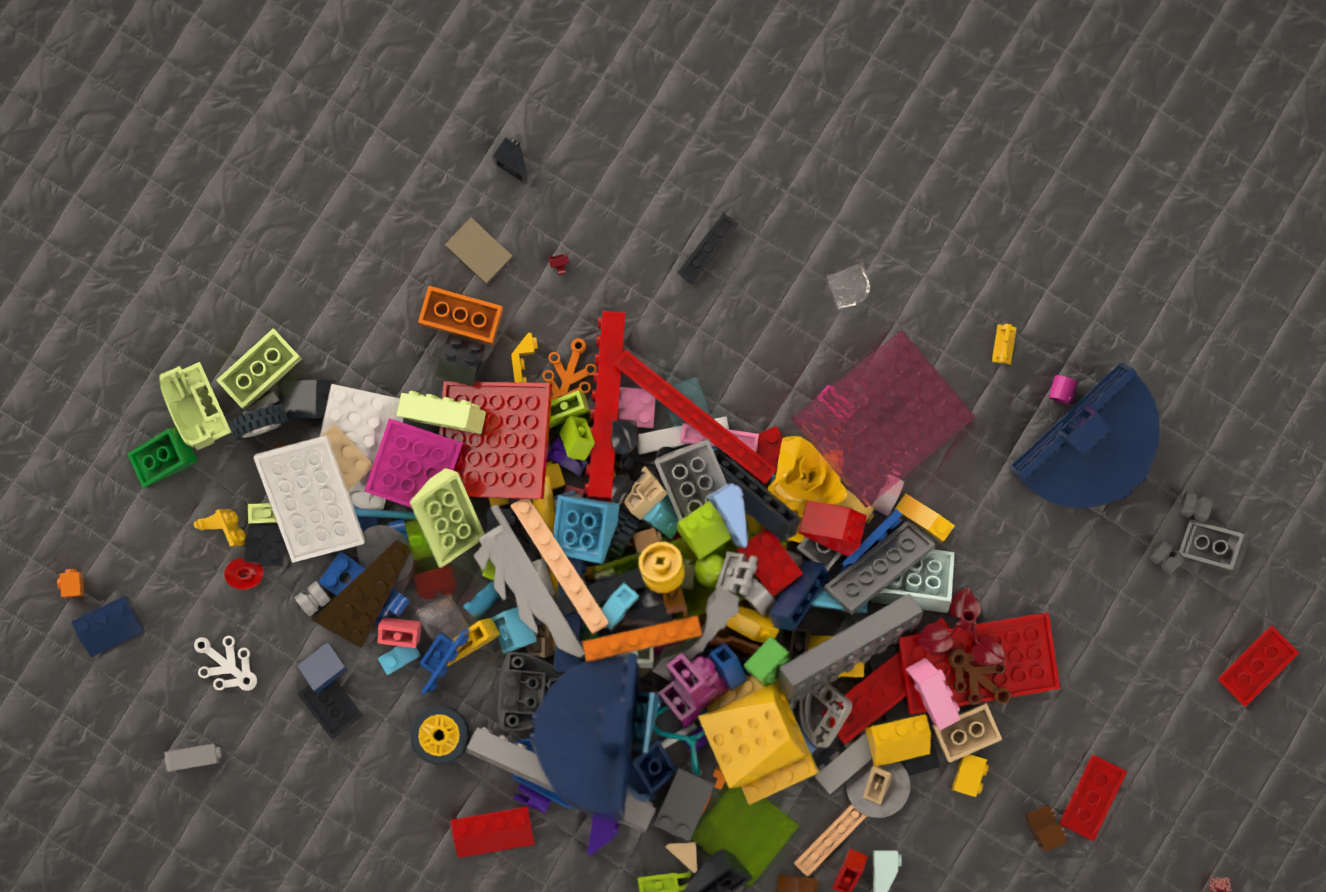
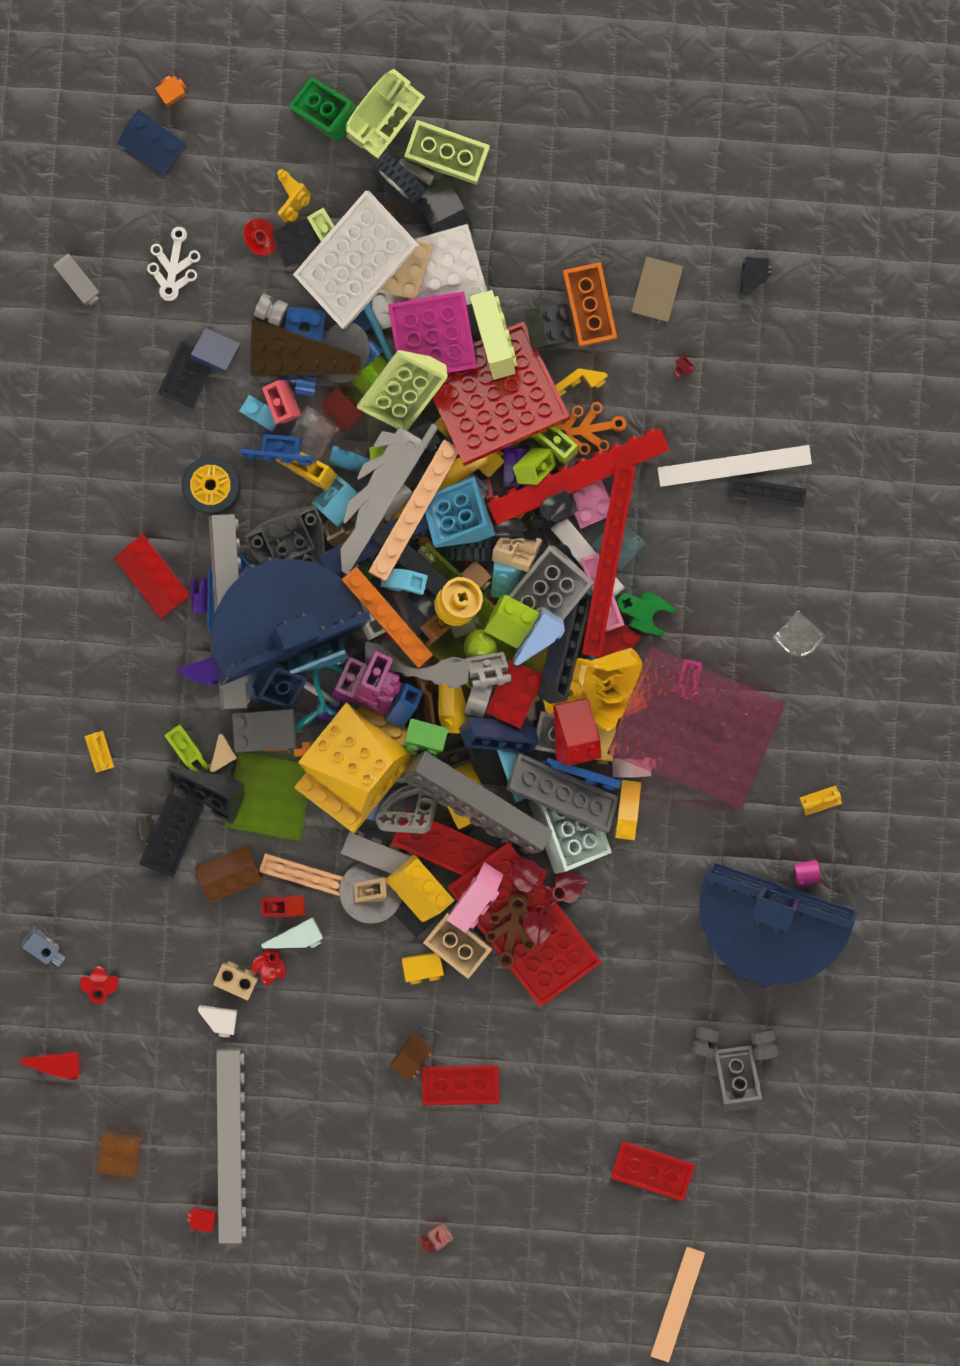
camera: 70 degrees right, 5 degrees up
(669, 265) = (734, 465): none -> white tile
(754, 410) = (642, 611): none -> green piece

